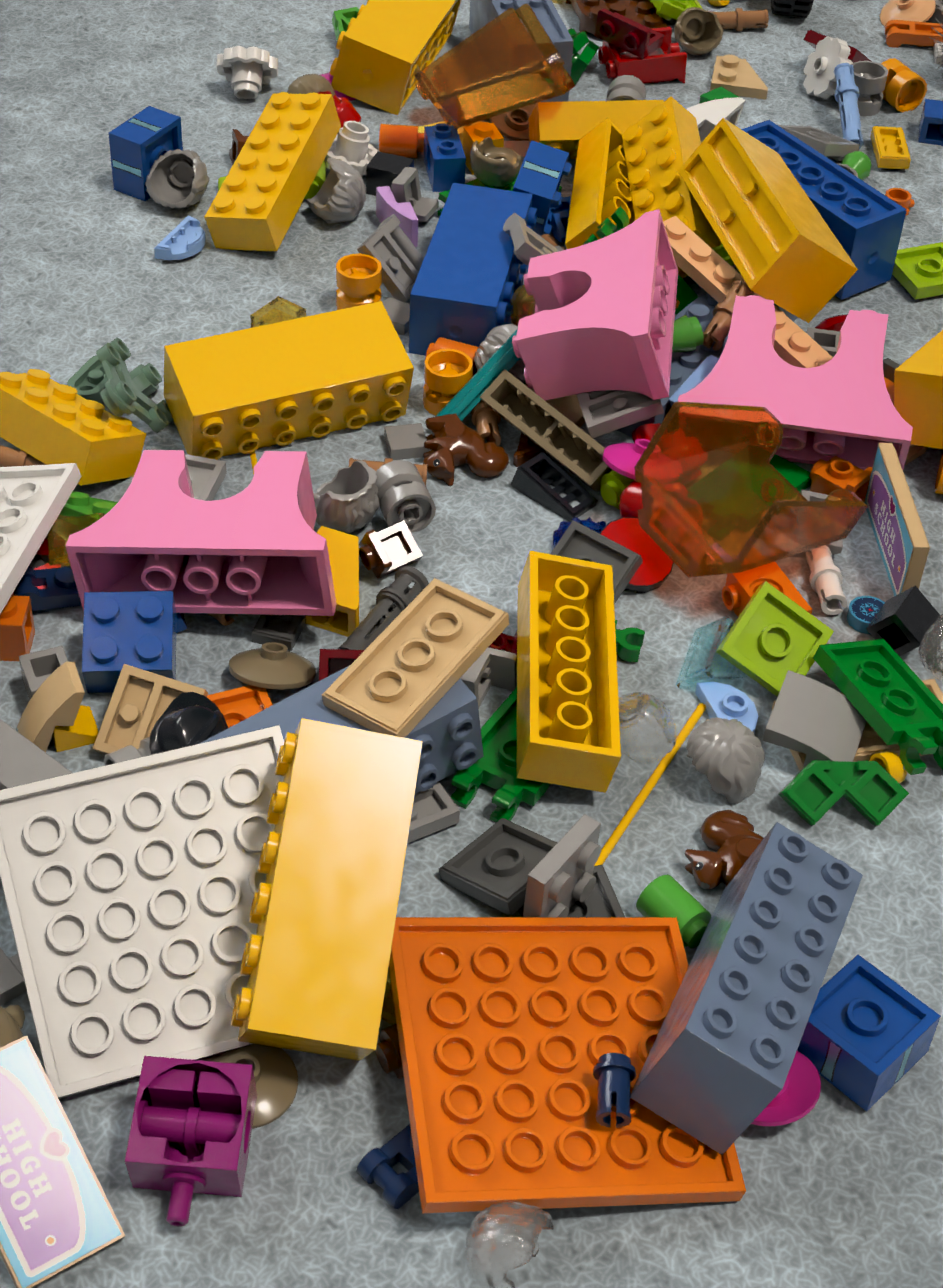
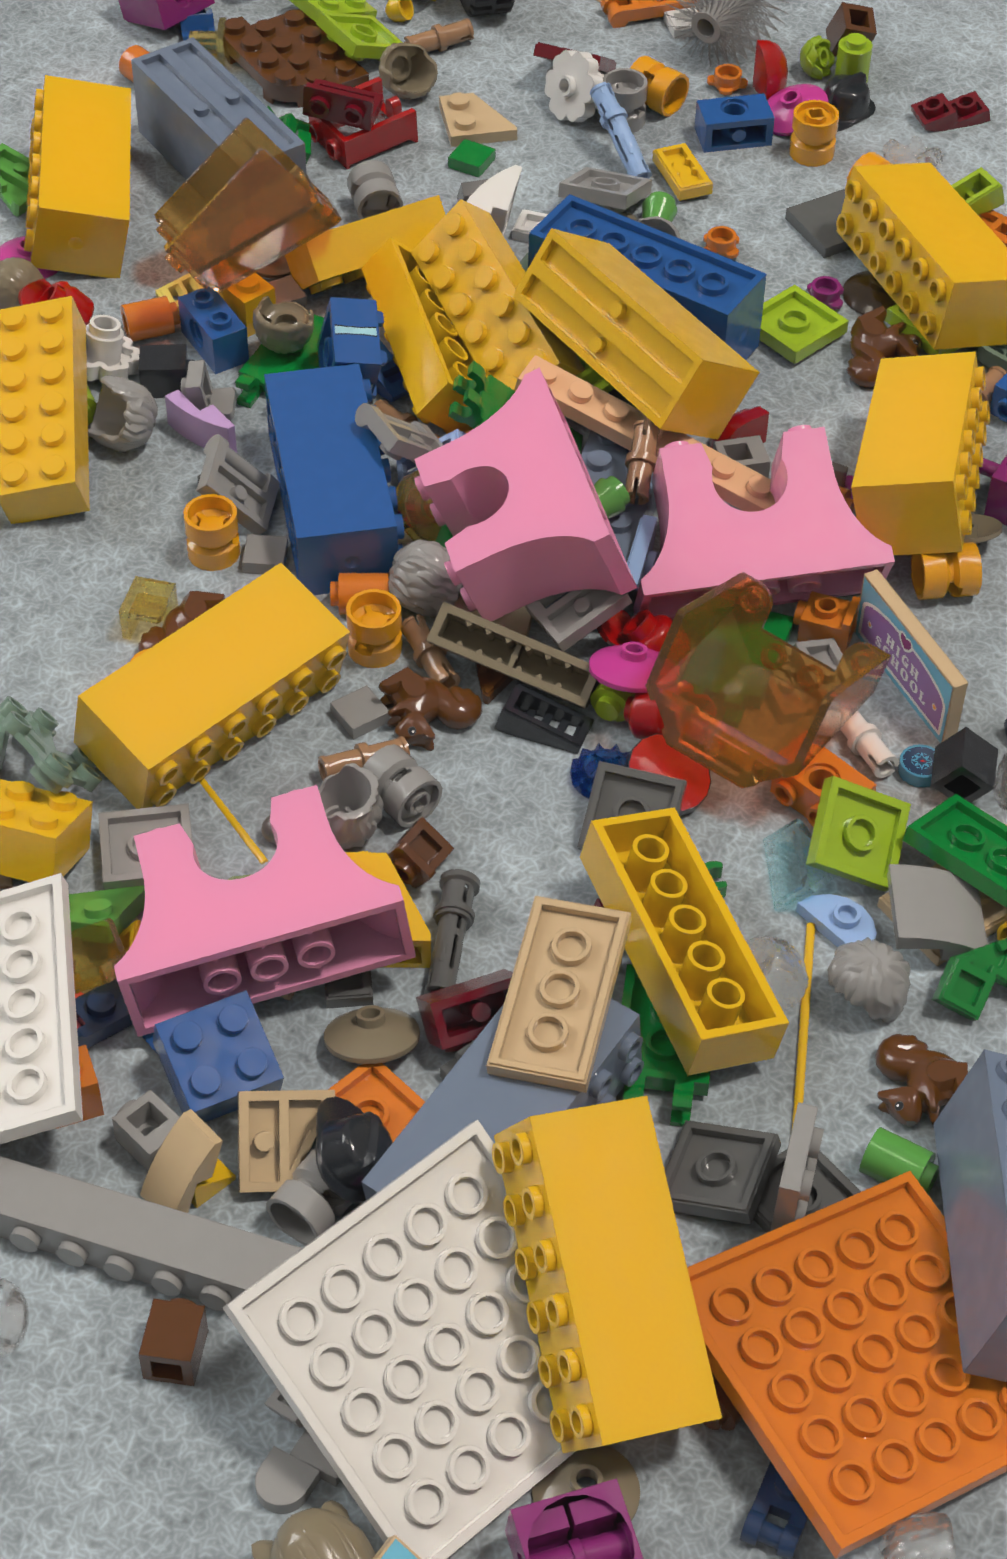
camera: 20 degrees left, 5 degrees up
(470, 393) = (418, 616): teal axle -> none
(614, 1078) = (947, 1370): dark blue pin -> none

